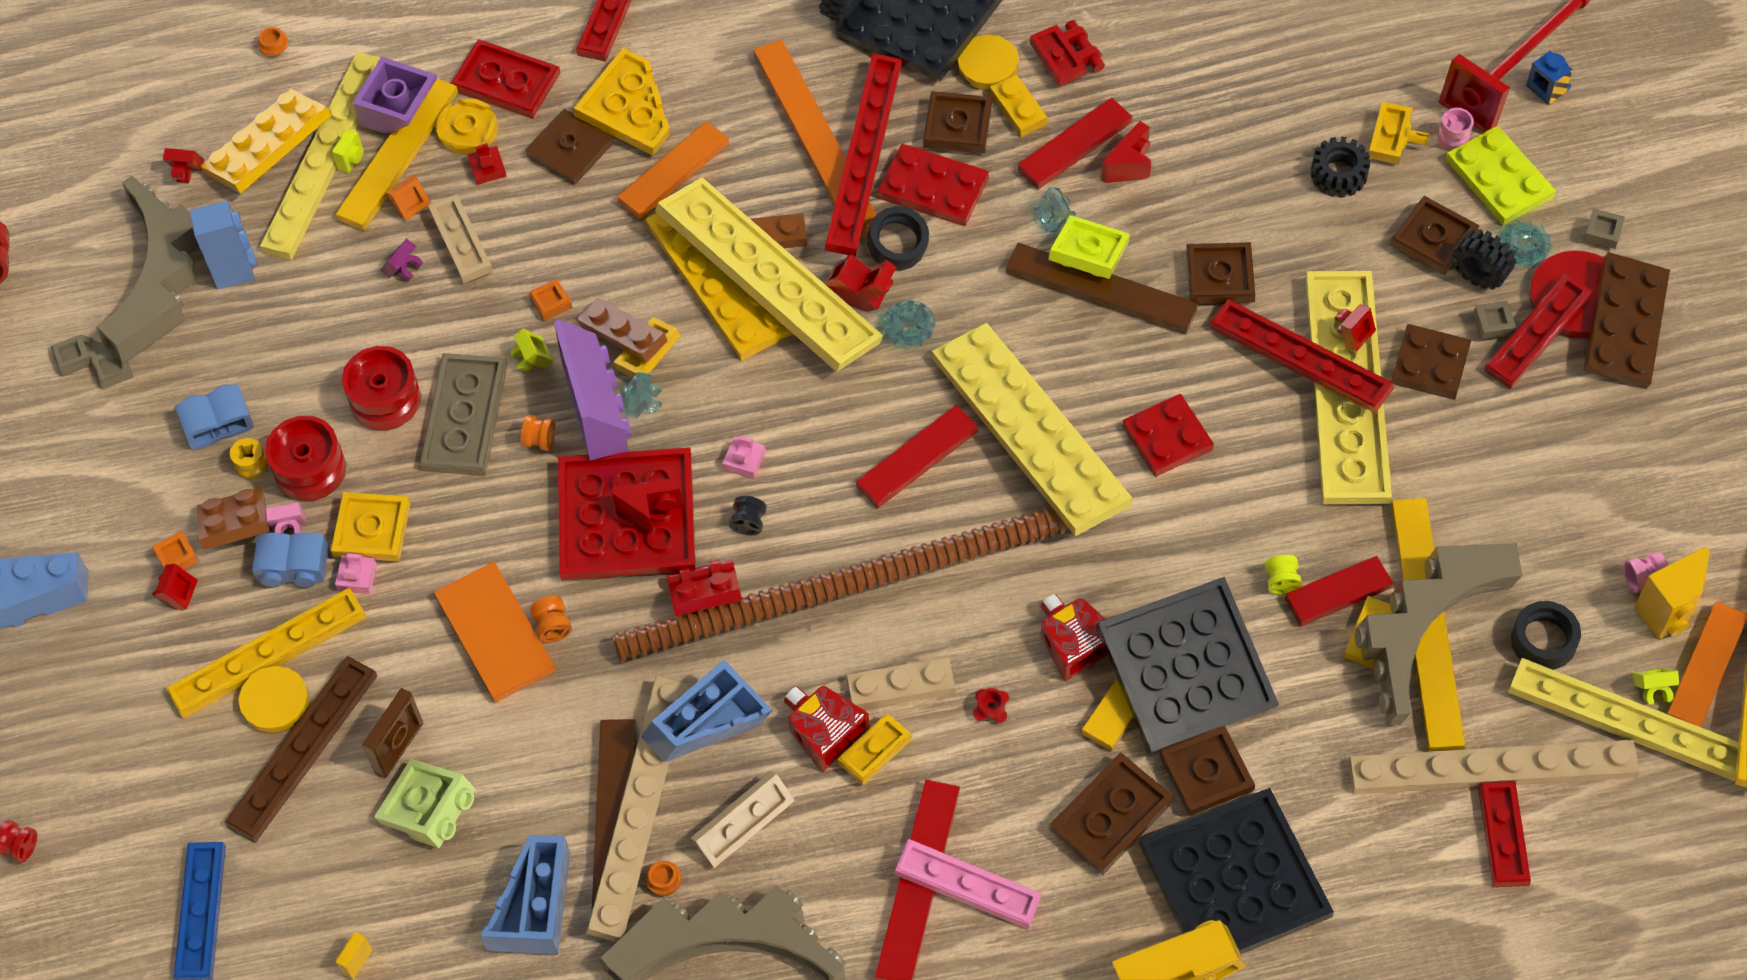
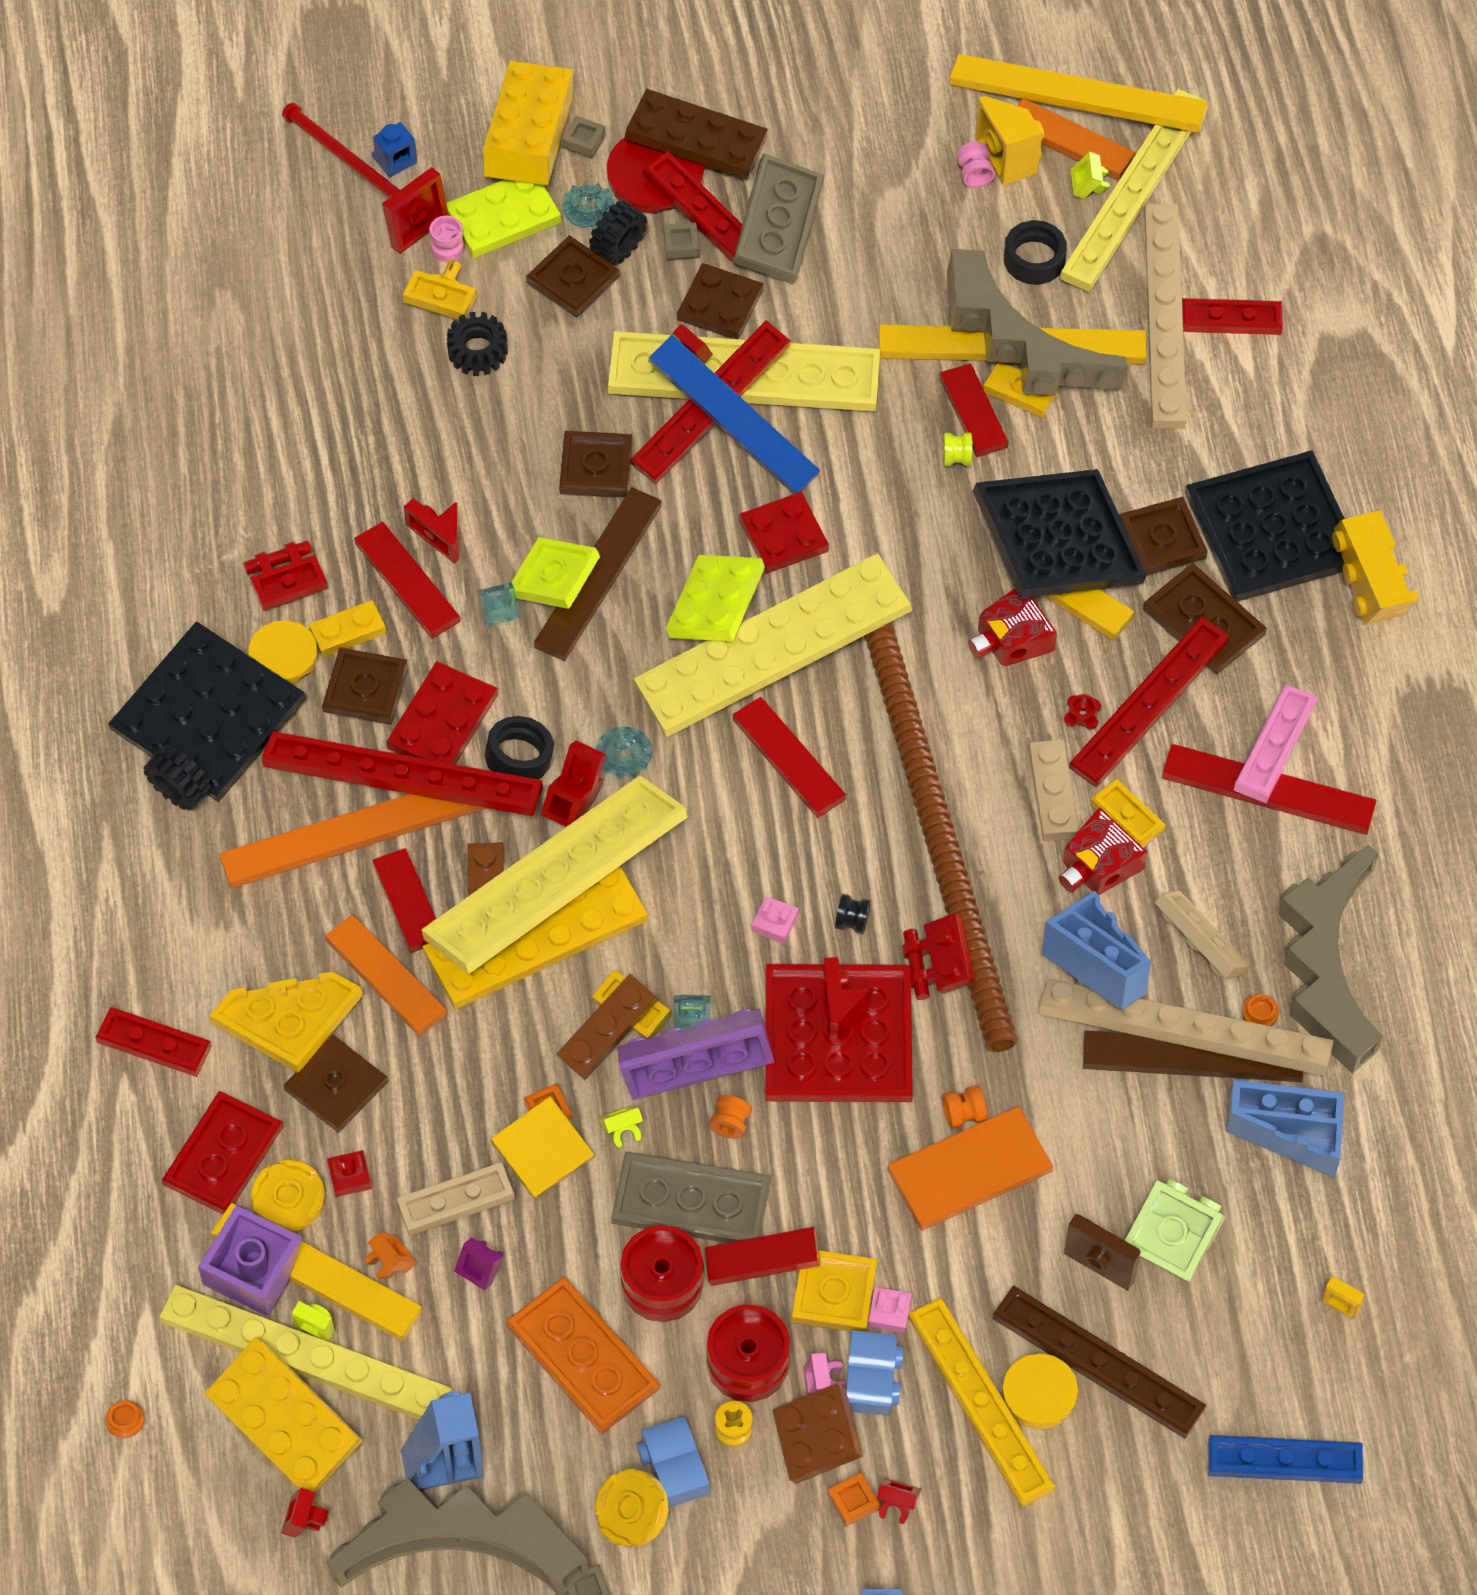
camera: 90 degrees left, 0 degrees up
(172, 387) = (631, 1508): none -> yellow tile
(319, 346) = (583, 1355): none -> orange tile
(401, 466) = (762, 1256): none -> red tile
(506, 294) = (542, 1148): none -> yellow tile
(753, 174) = (405, 896): none -> red tile
(1005, 763) = (1148, 702): none -> red tile
(1076, 375) = (715, 598): none -> neon yellow plate
(1282, 371) = (734, 415): none -> blue tile
(1539, 400) = (778, 218): none -> dark tan tile
(1601, 174) = (528, 123): none -> yellow brick

